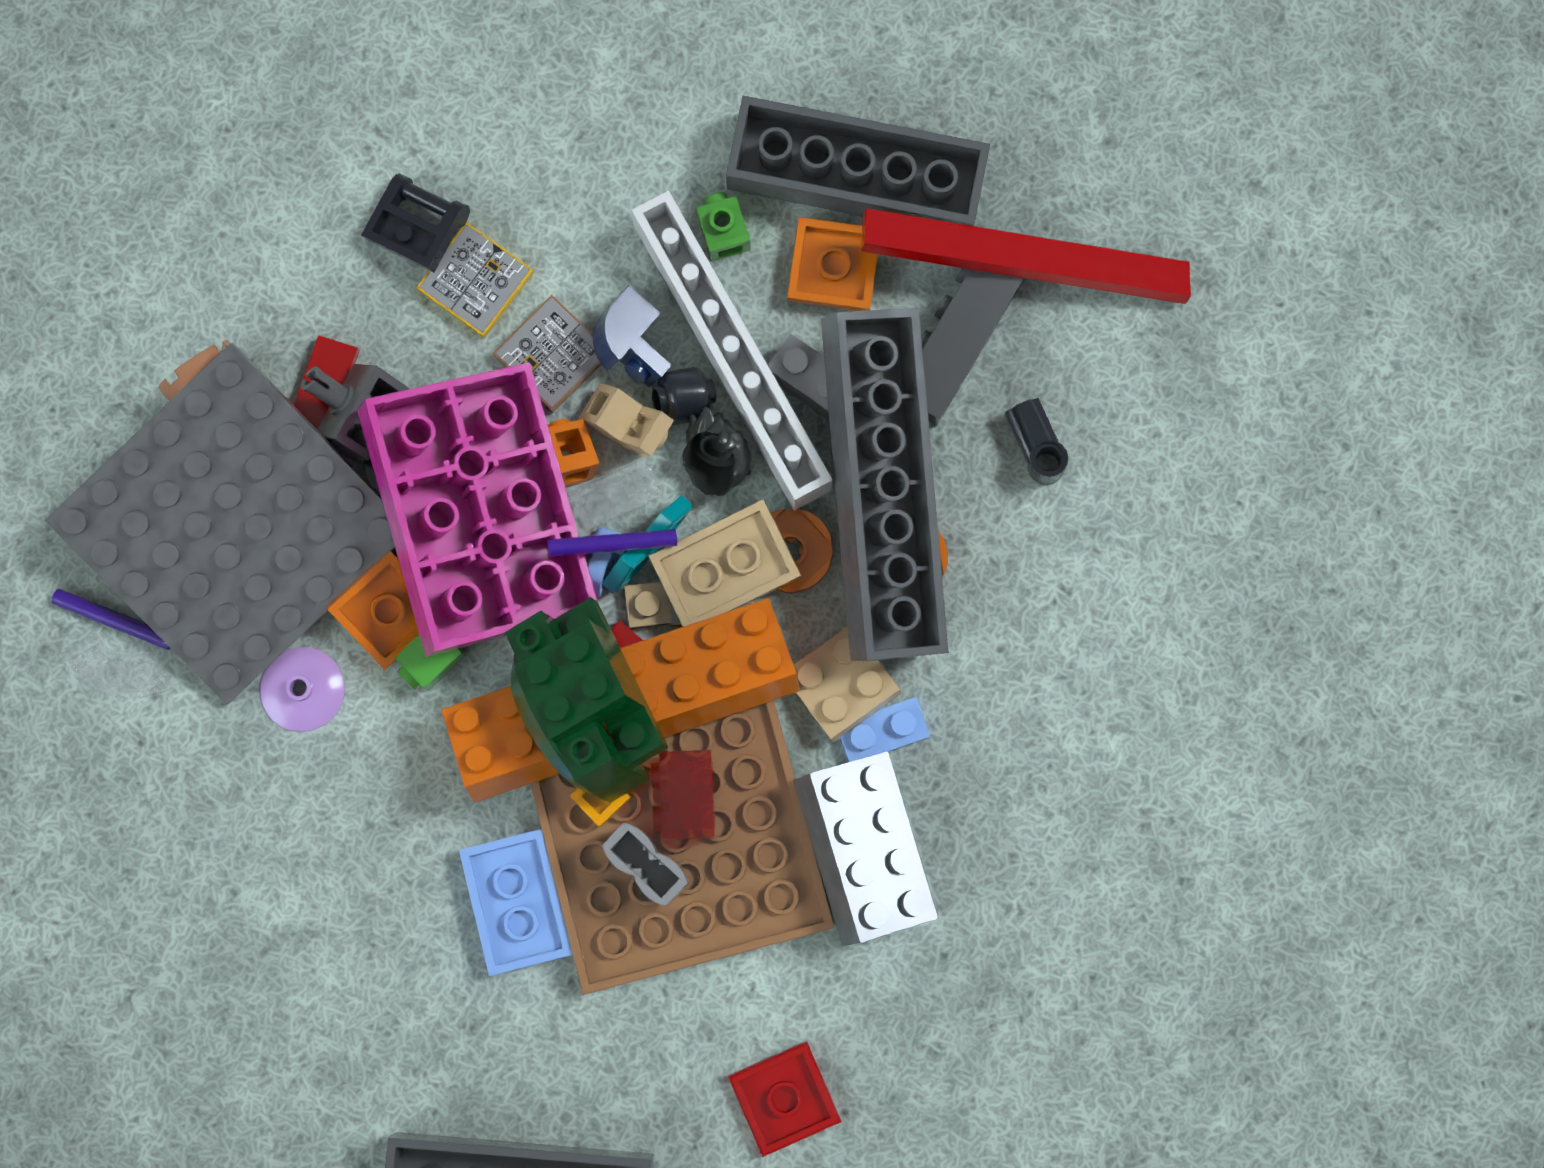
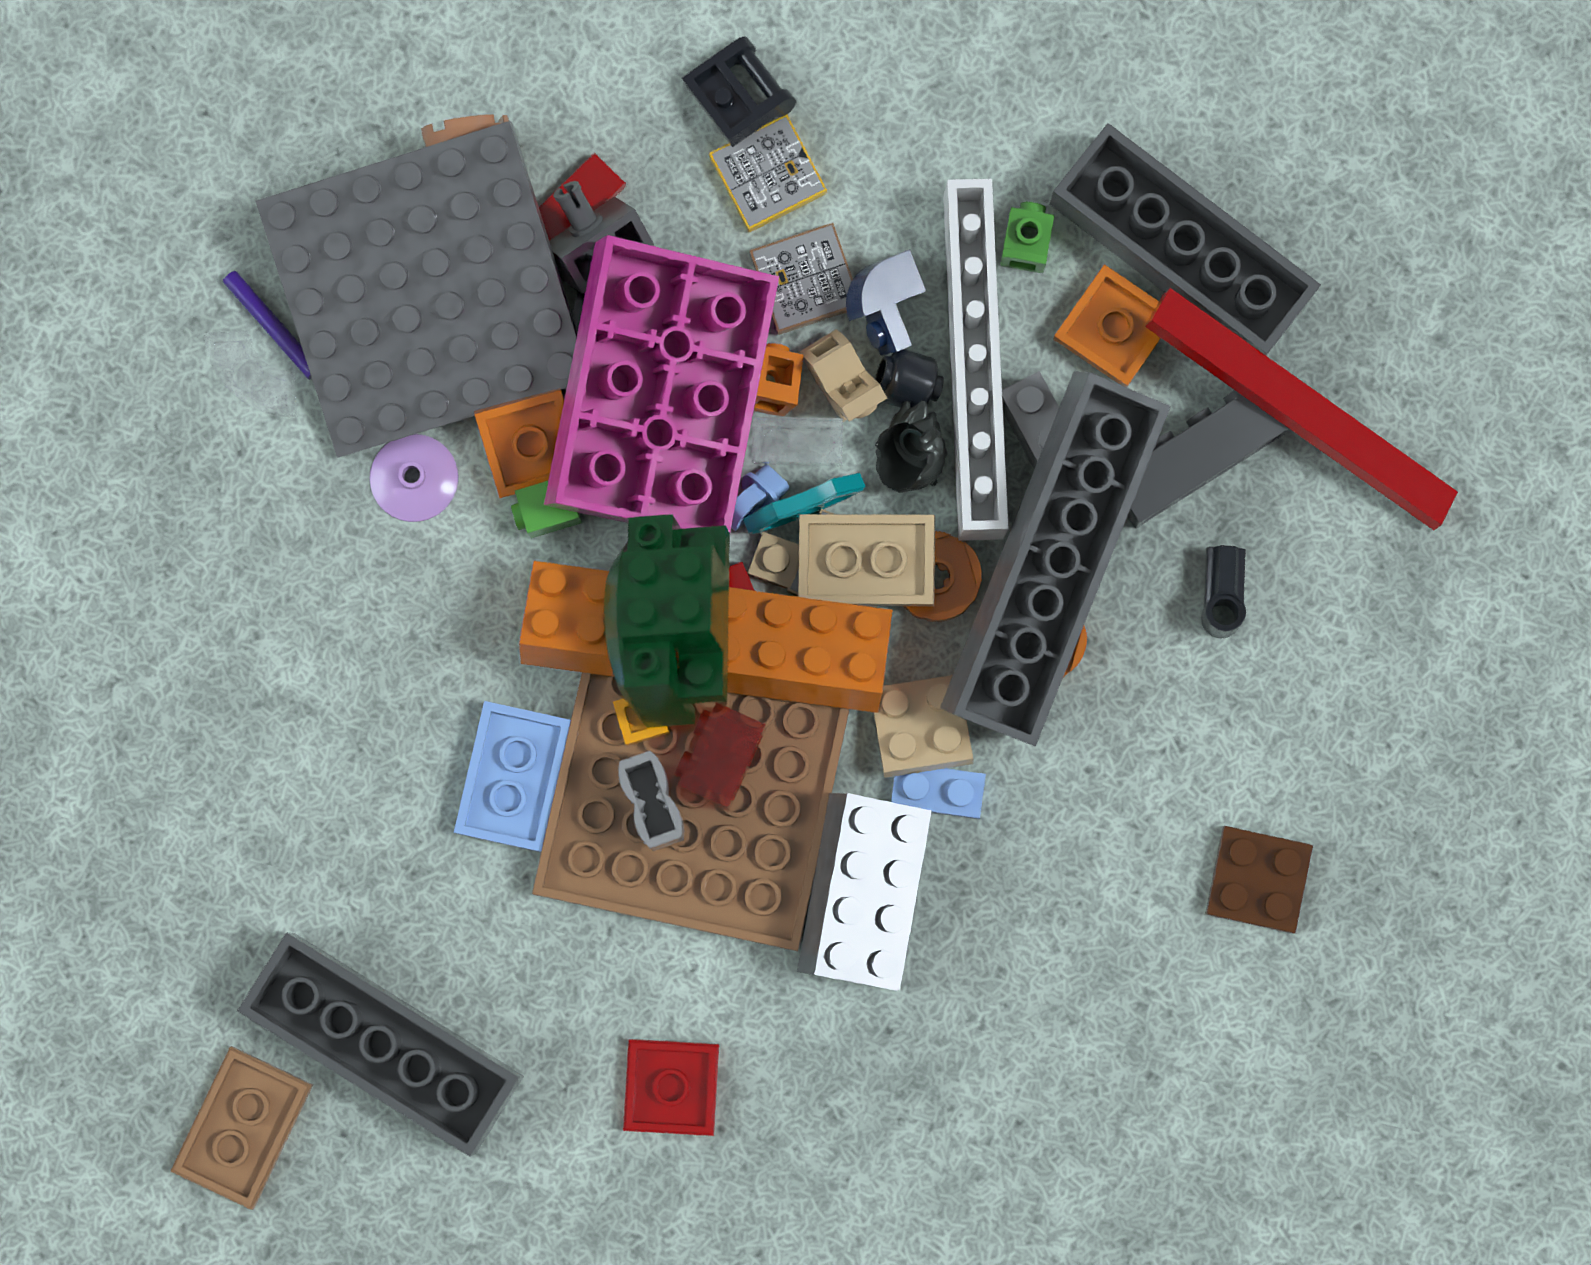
camera: 30 degrees right, 0 degrees up
(611, 542) = (771, 484): dark purple bar -> none
(1189, 669) = (1259, 879): none -> reddish brown plate

